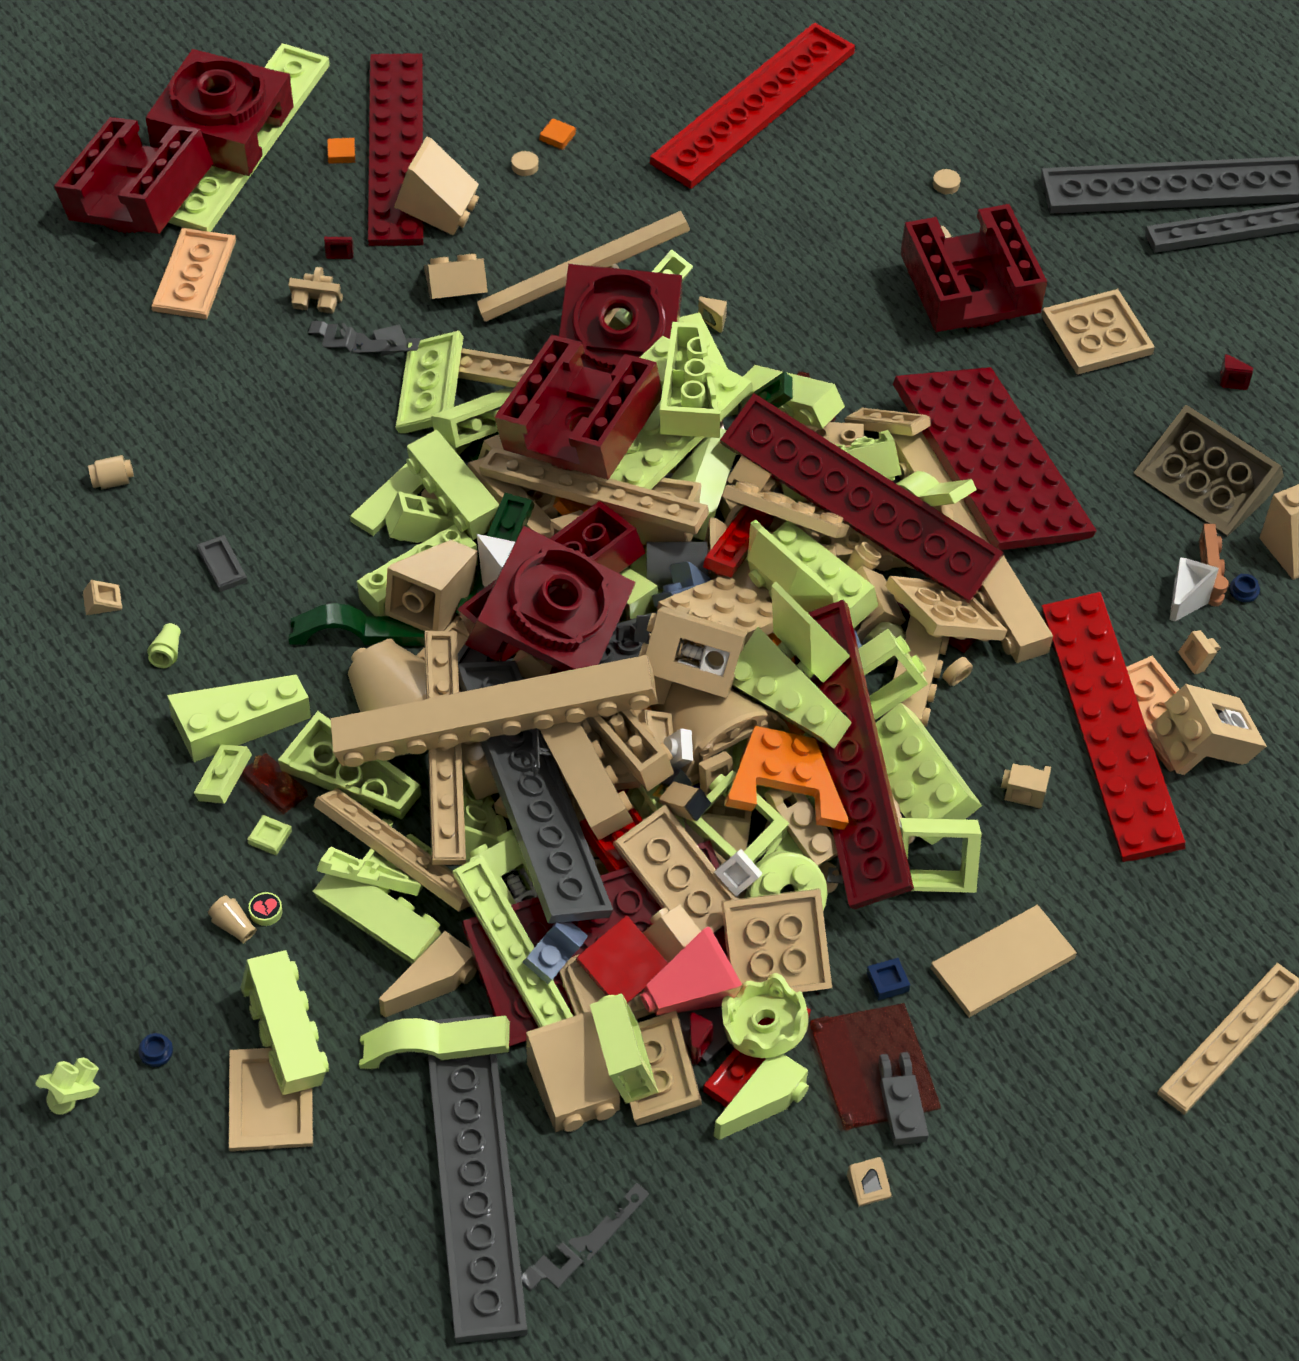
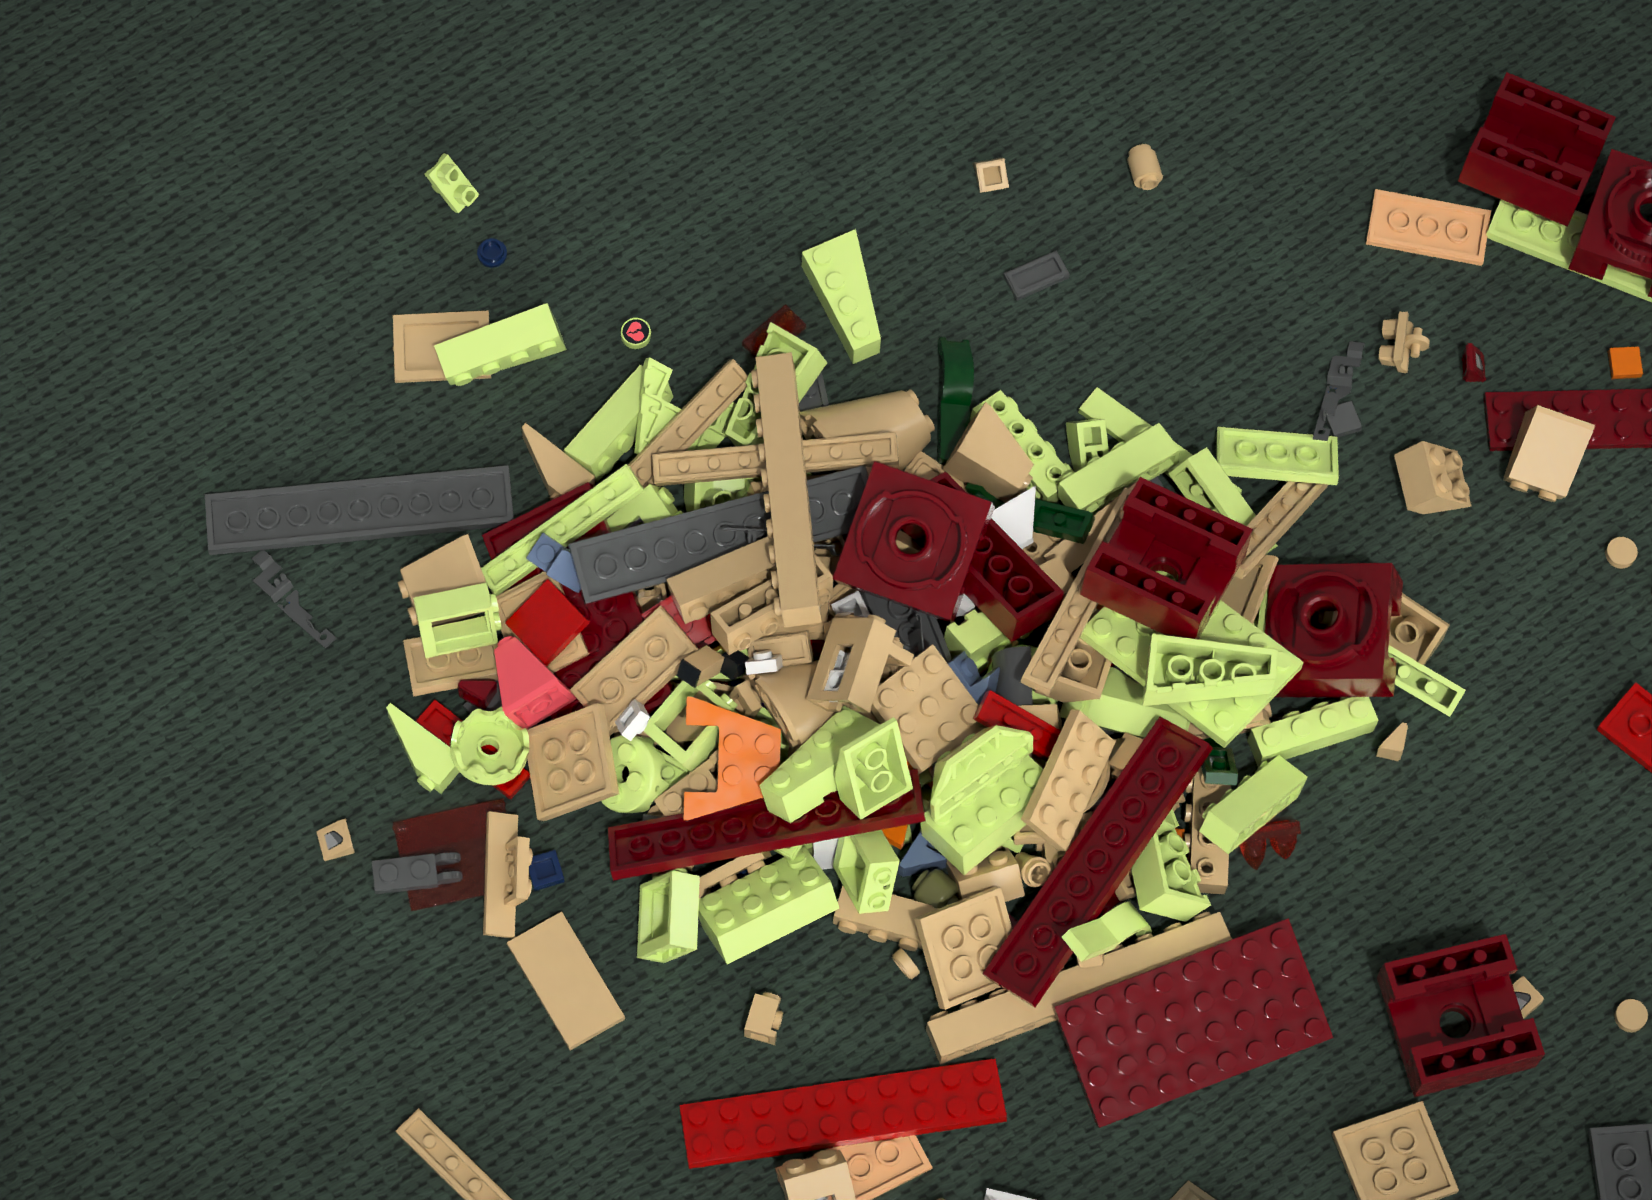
camera: 90 degrees right, 15 degrees up
(164, 648) = (929, 230): yellowish green cone -> none
(222, 773) = (780, 288): yellowish green plate -> none
(230, 917) = (623, 304): tan cone -> none
(269, 835) = (716, 333): yellowish green tile -> none
(441, 1040) = (482, 473): yellowish green piece -> none
(601, 257) = (1434, 599): tan tile -> none
(671, 931) = (574, 664): tan brick -> none
(894, 421) = (1231, 911): tan tile -> none
(899, 1003) = (505, 874): none -> tan bracket

